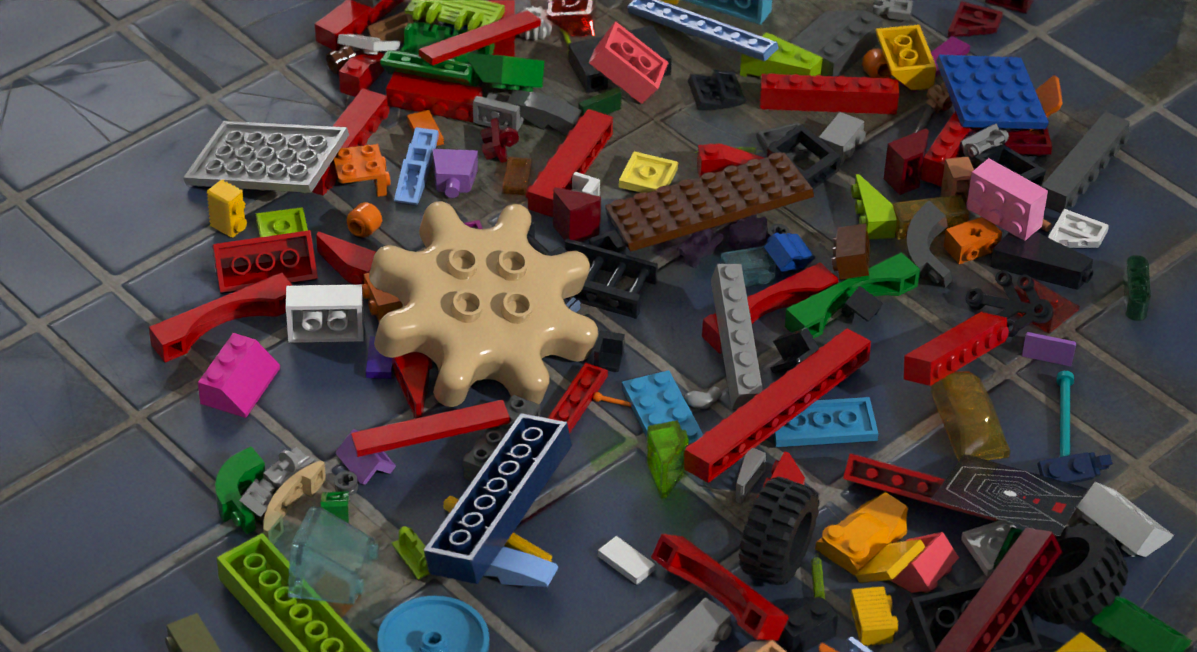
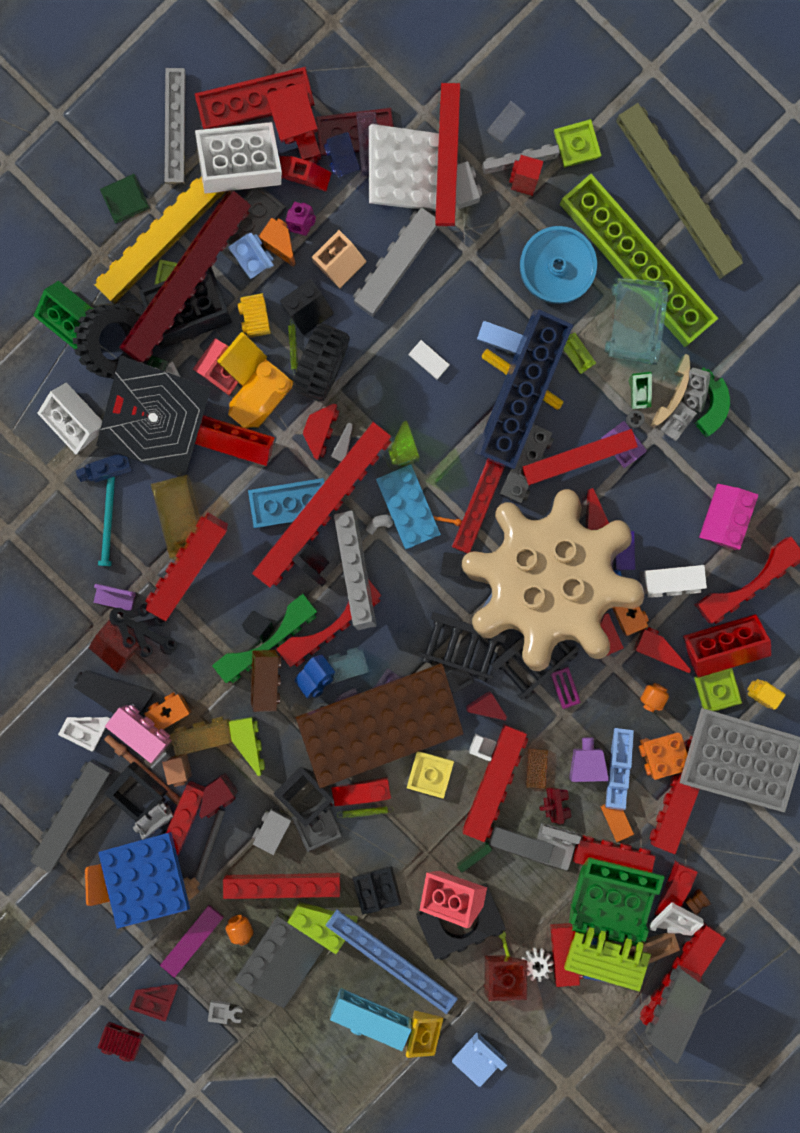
camera: 175 degrees right, 45 degrees up
(479, 37) = (582, 917): red tile -> none
(508, 71) = (556, 882): green slope -> none
(749, 608) = (387, 350): red arch -> none
(908, 56) = (215, 928): yellow slope -> none
(921, 232) = (207, 708): dark grey arch -> none
(1029, 142) = (115, 836): dark red wing -> none
(1136, 287) = (35, 674): clear green beam -> none

